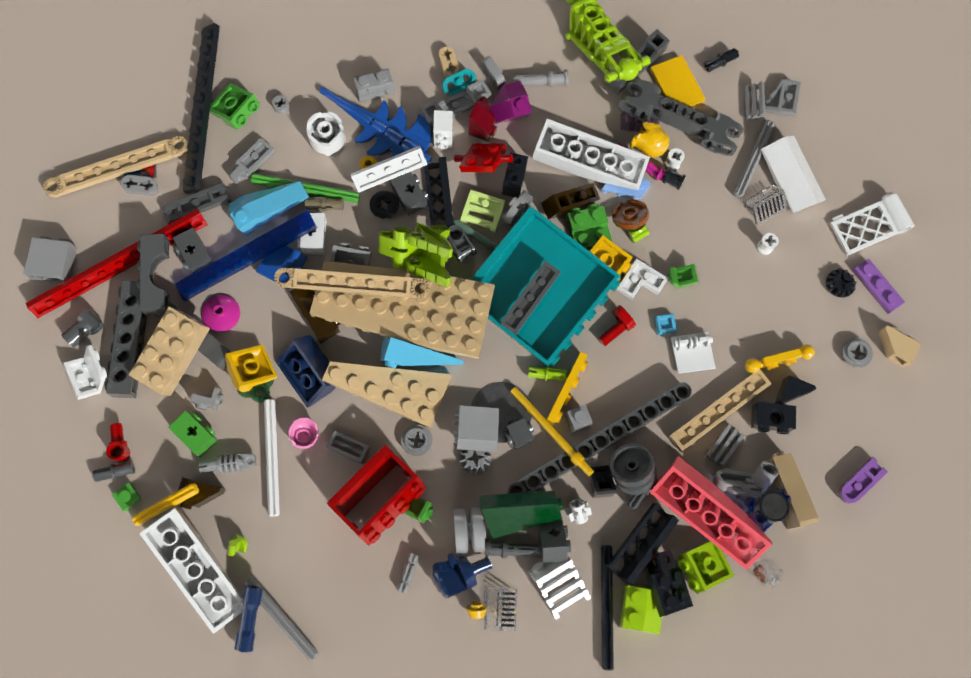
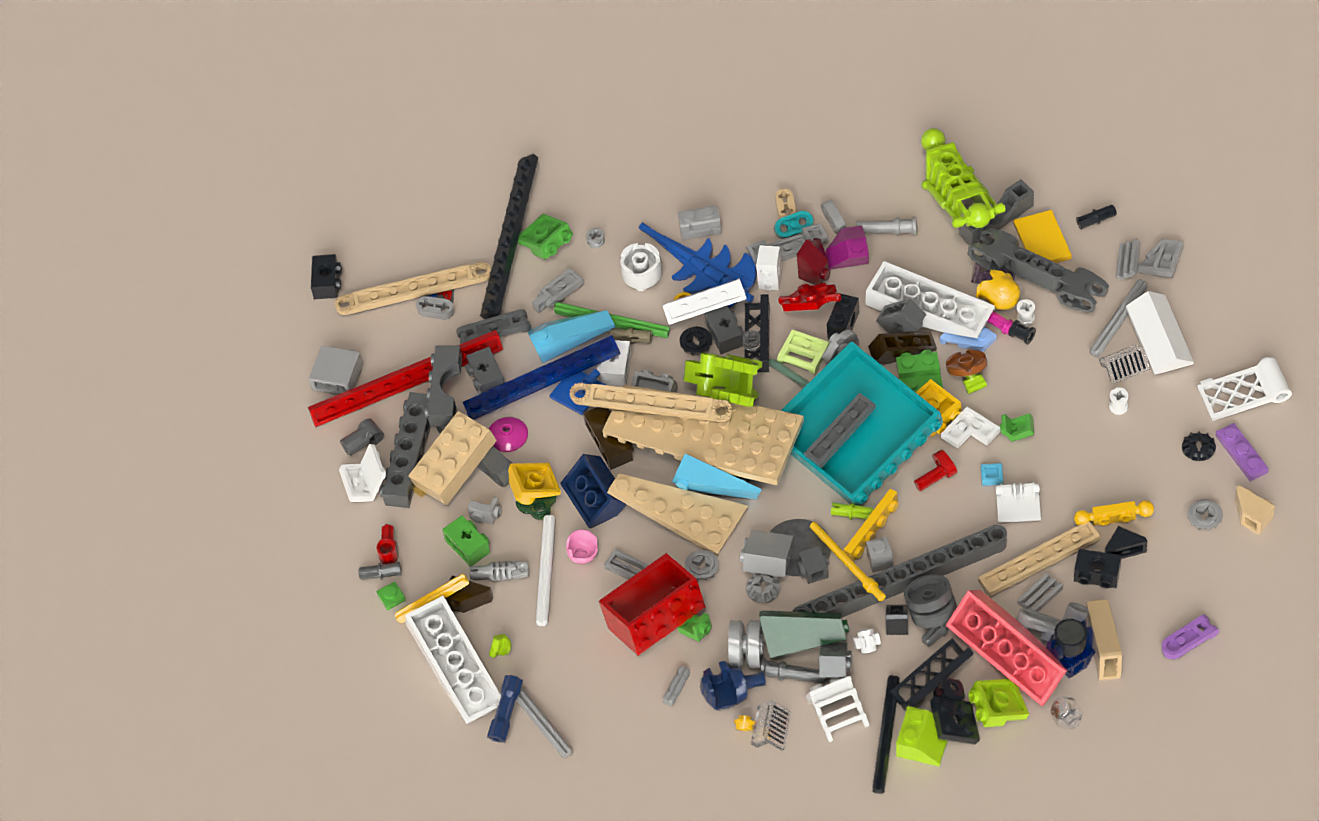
camera: 20 degrees right, 20 degrees down
(26, 151) = (325, 276): none -> black brick
(433, 197) = (751, 334): none -> clear bush
(461, 246) = (774, 383): dark grey piece -> none
(568, 173) = (901, 317): none -> dark grey brick

